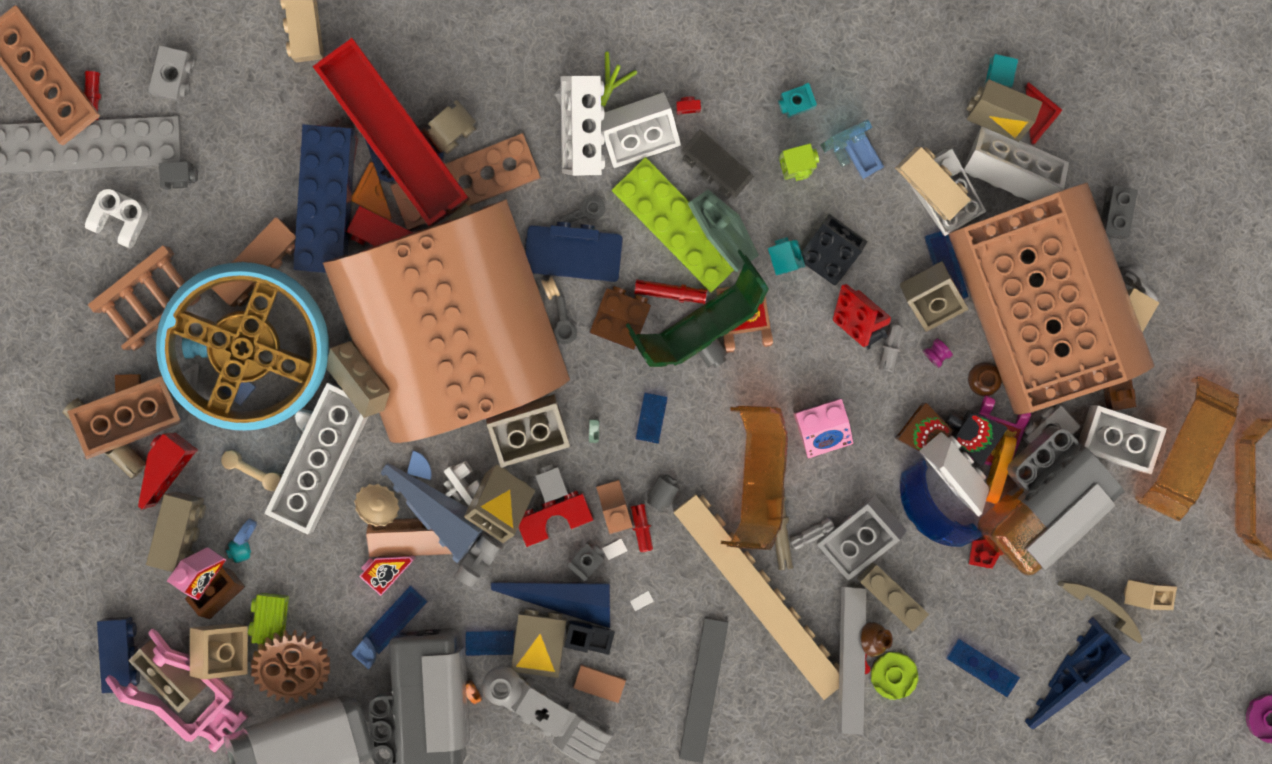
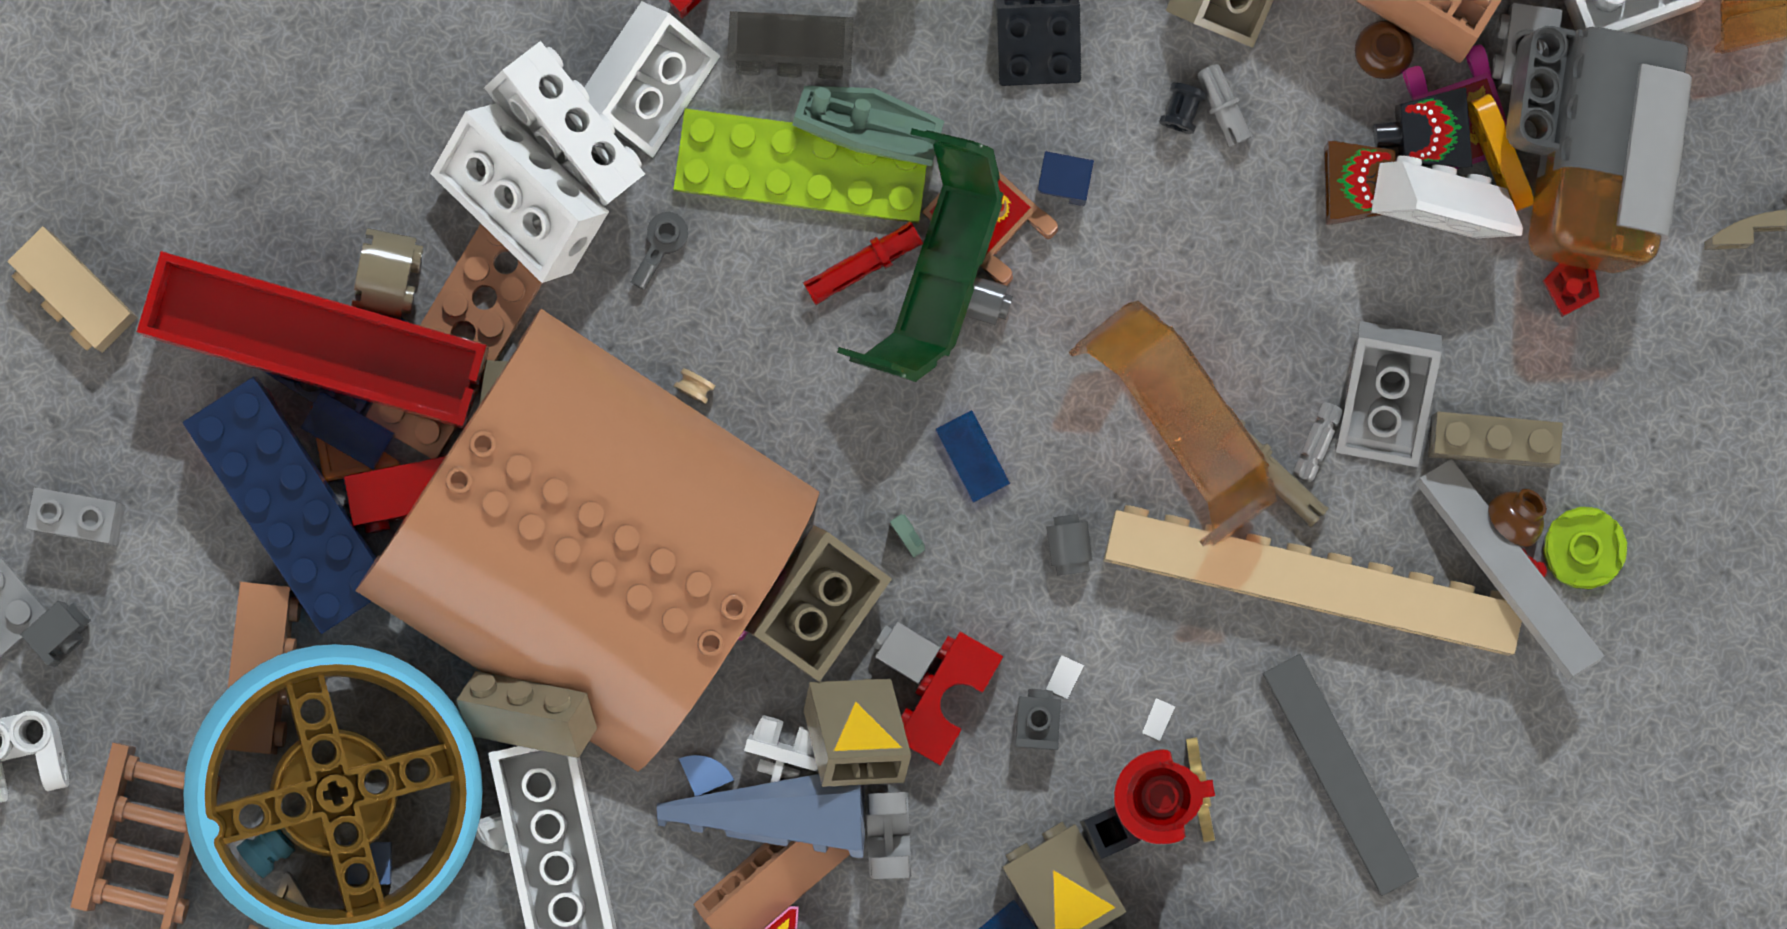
camera: 40 degrees left, 5 degrees down
(225, 128) = (75, 516): none -> light grey brick
(376, 505) = (688, 872): tan piece -> none
(378, 185) = (347, 430): none -> clear blue tile
(538, 137) = (519, 192): none -> white brick
(564, 330) = (758, 429): dark grey plate -> none
(574, 252) = (688, 311): dark blue bracket -> none
(577, 599) = (1064, 788): dark blue wedge -> none
(599, 683) = (1190, 879): nougat tile -> none
(609, 82) = (559, 45): lime plant -> none
(613, 640) = (1161, 796): none -> red helmet
(614, 507) = (1017, 616): nougat arch -> none
(617, 311) = (810, 349): reddish brown plate -> none
(642, 528) = (1078, 617): red axle -> none
(786, 256) = (982, 92): teal brick -> none
(793, 325) = (1066, 177): none -> dark blue panel
(824, 427) = (1219, 284): bright pink slope -> none
(858, 315) = (1143, 94): red bracket -> none
(926, 515) = (1449, 292): clear blue windscreen -> none
(937, 353) = (1291, 63): magenta wheel -> none
(983, 668) = (1696, 442): clear blue tile -> none

